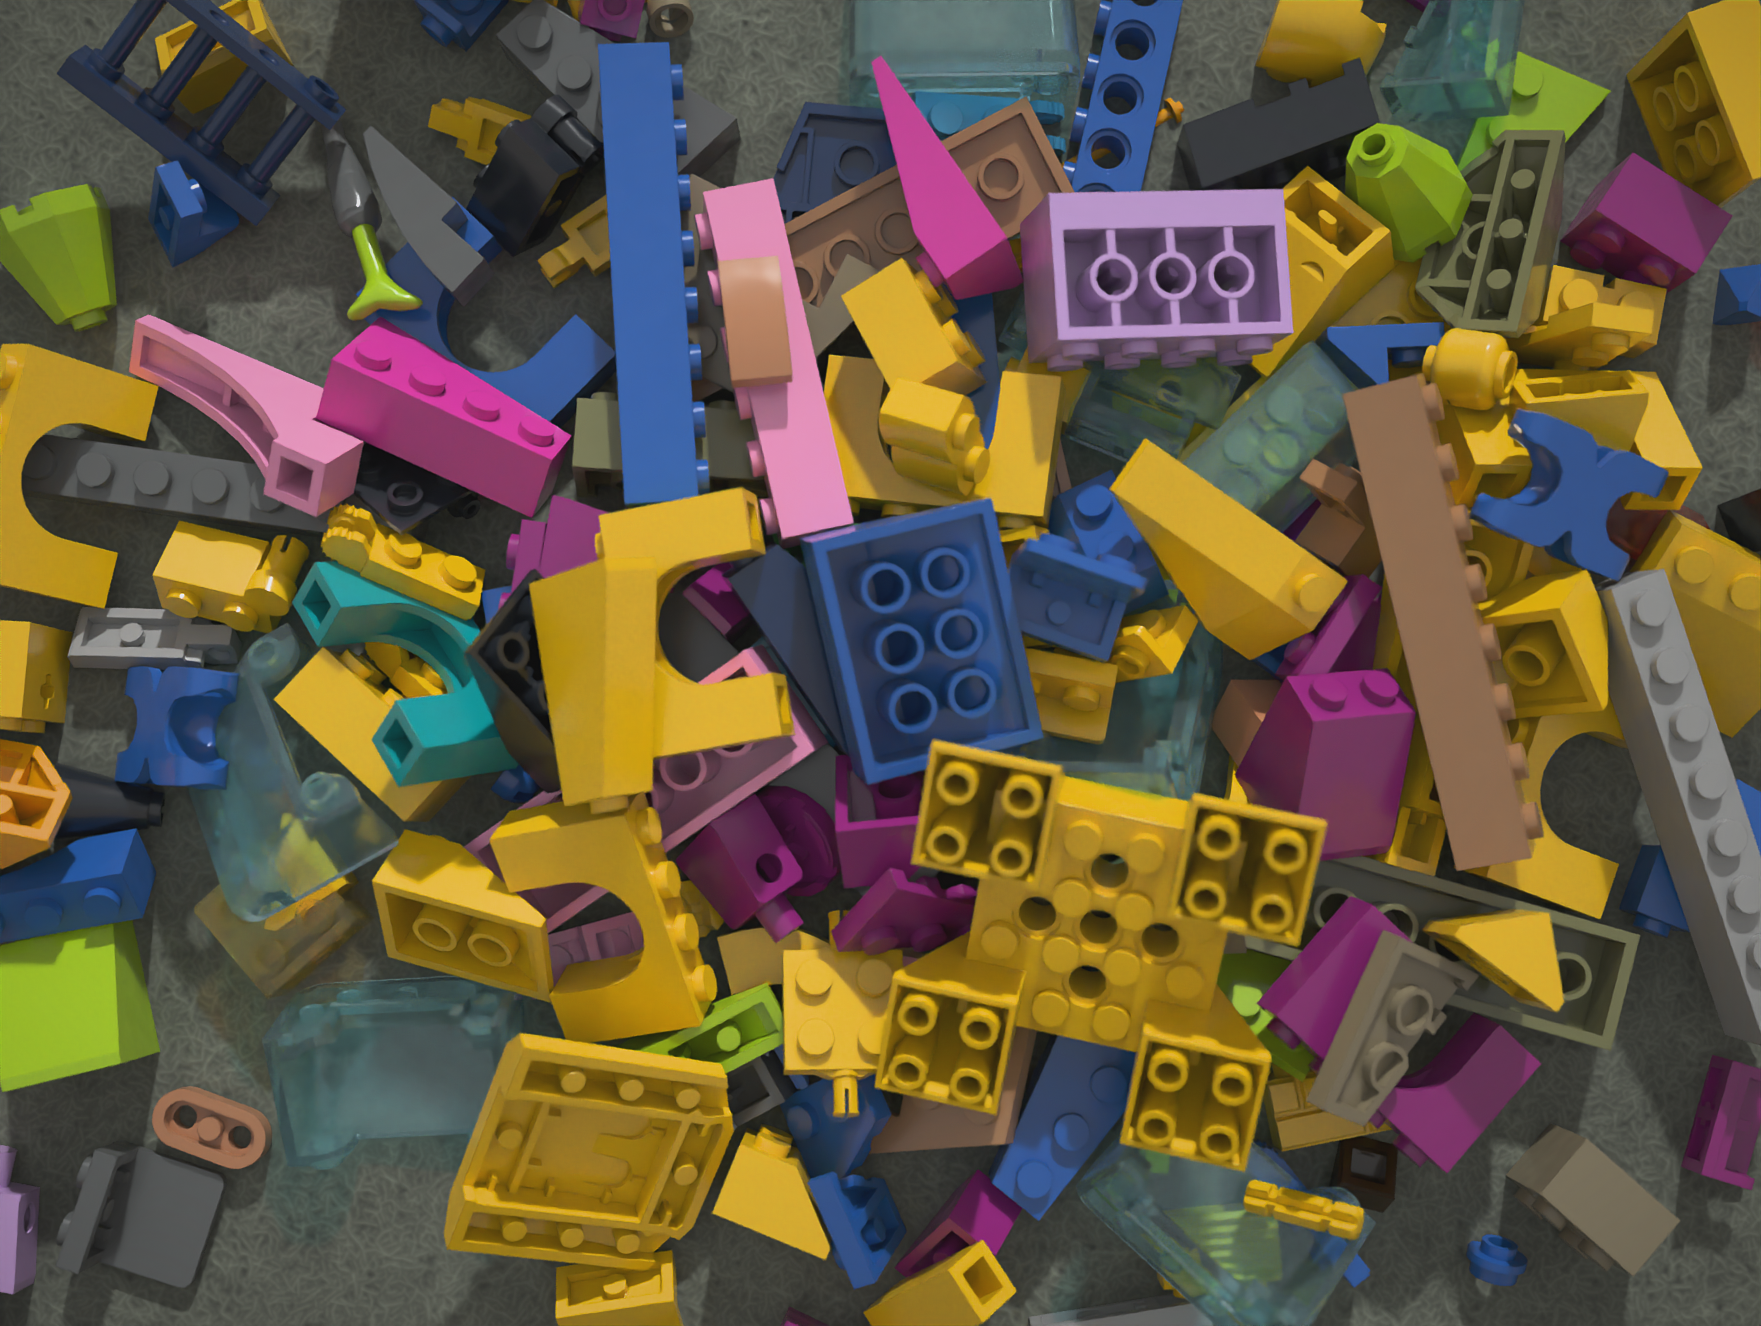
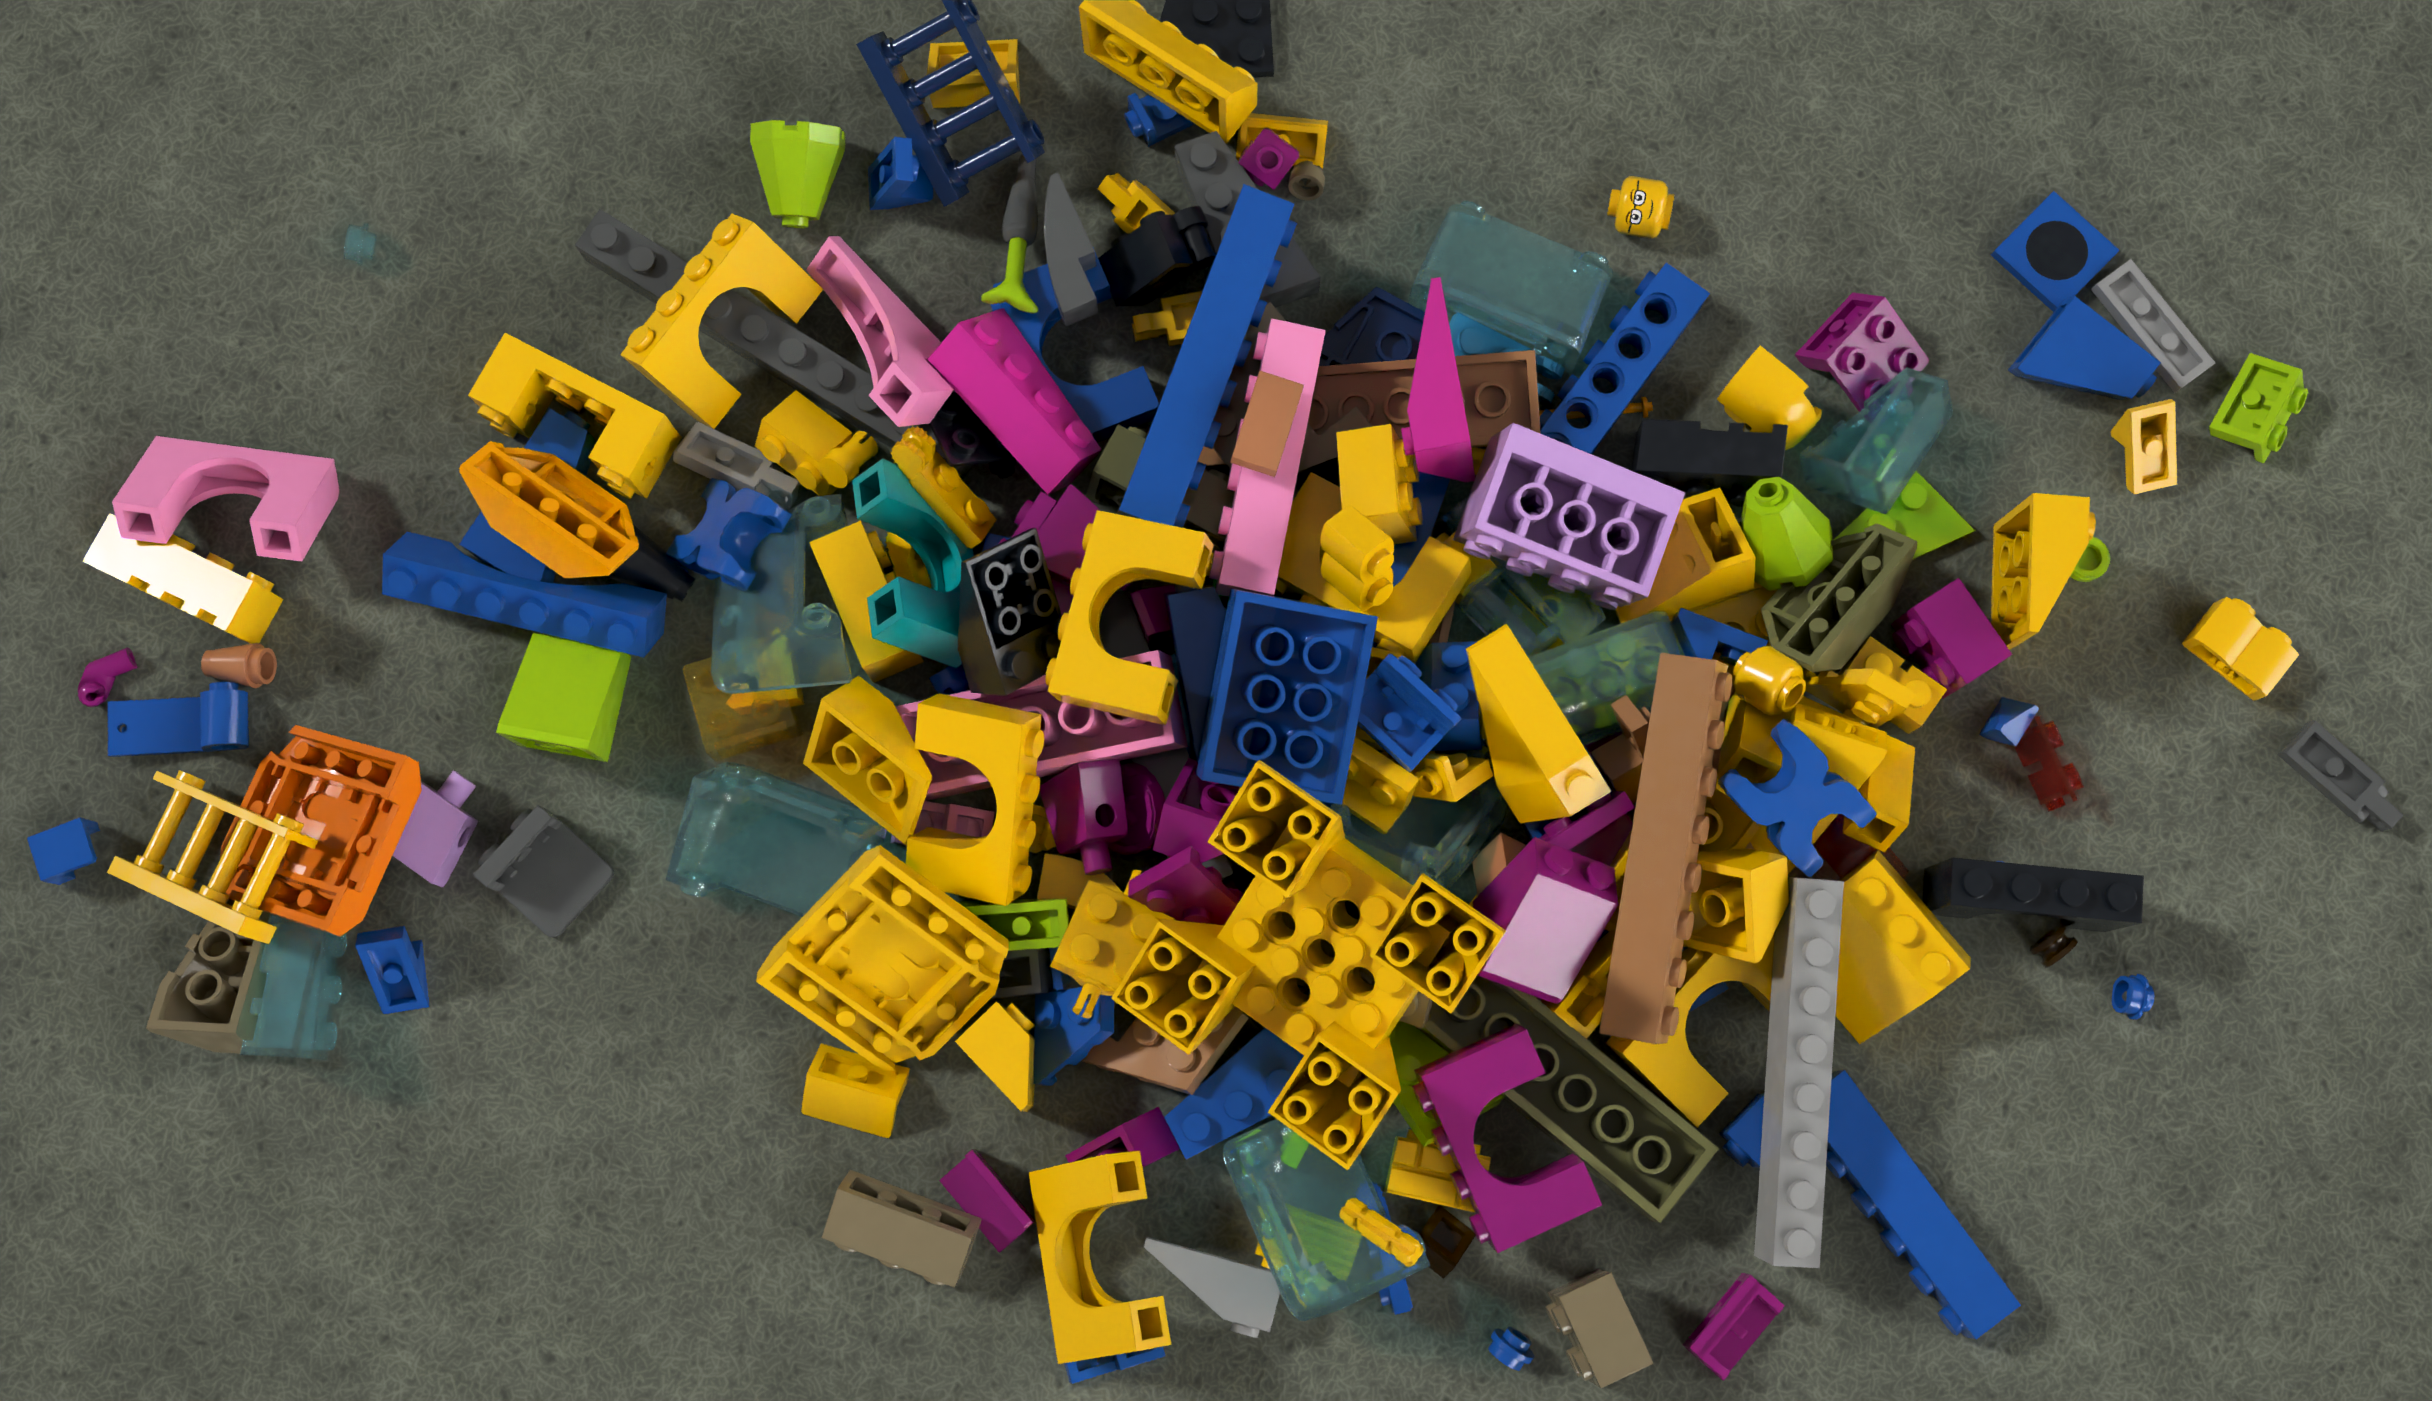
camera: 25 degrees right, 5 degrees down
(214, 1128) = (622, 832): nougat plate -> none
(600, 677) = (1047, 620): yellow slope -> none
(861, 1223) = (1057, 1100): blue wing -> none
(1386, 1017) = (1503, 1111): dark tan wing -> none
(1508, 949) = (1609, 1106): yellow slope -> none

